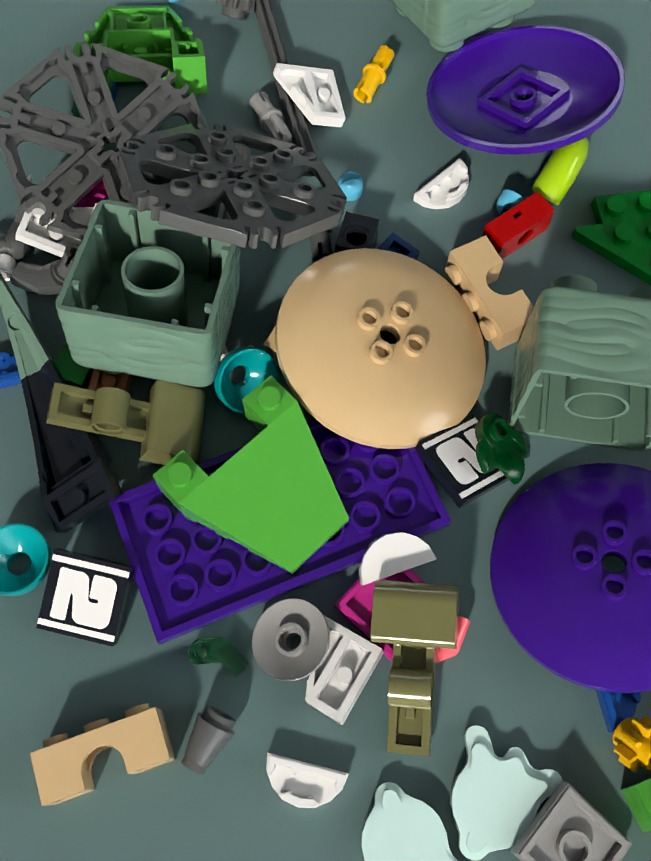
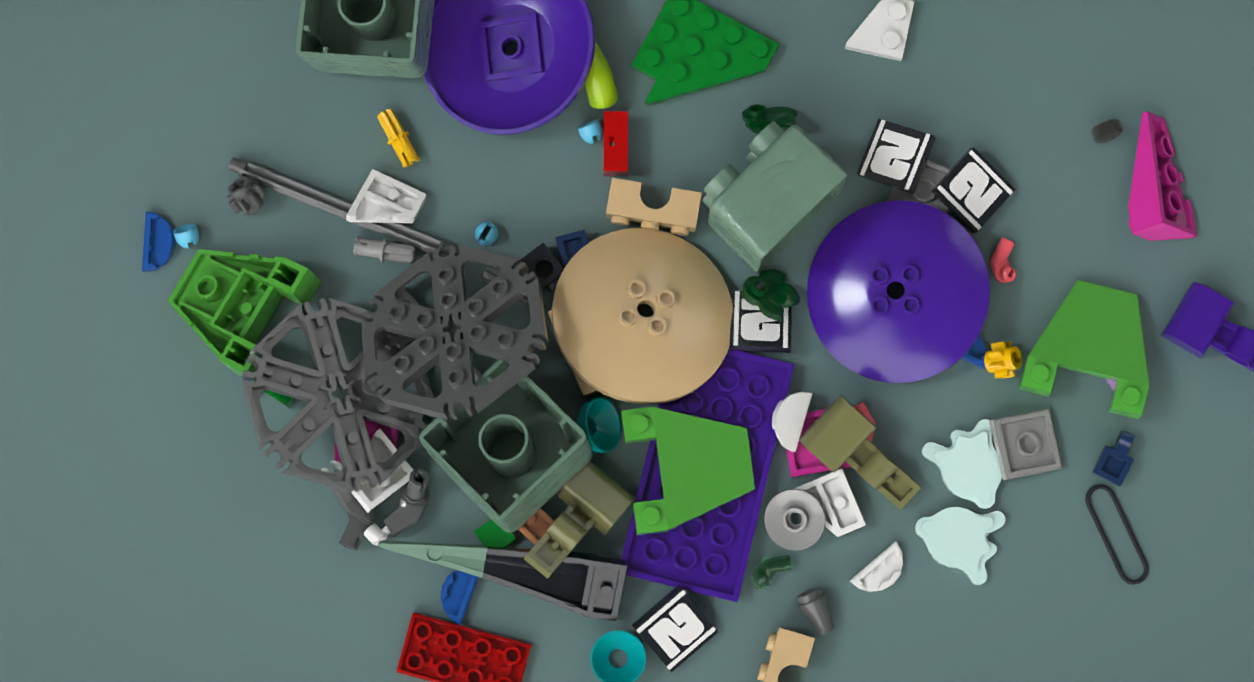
camera: 55 degrees left, 15 degrees up
(446, 188) = (540, 162): white tile -> none

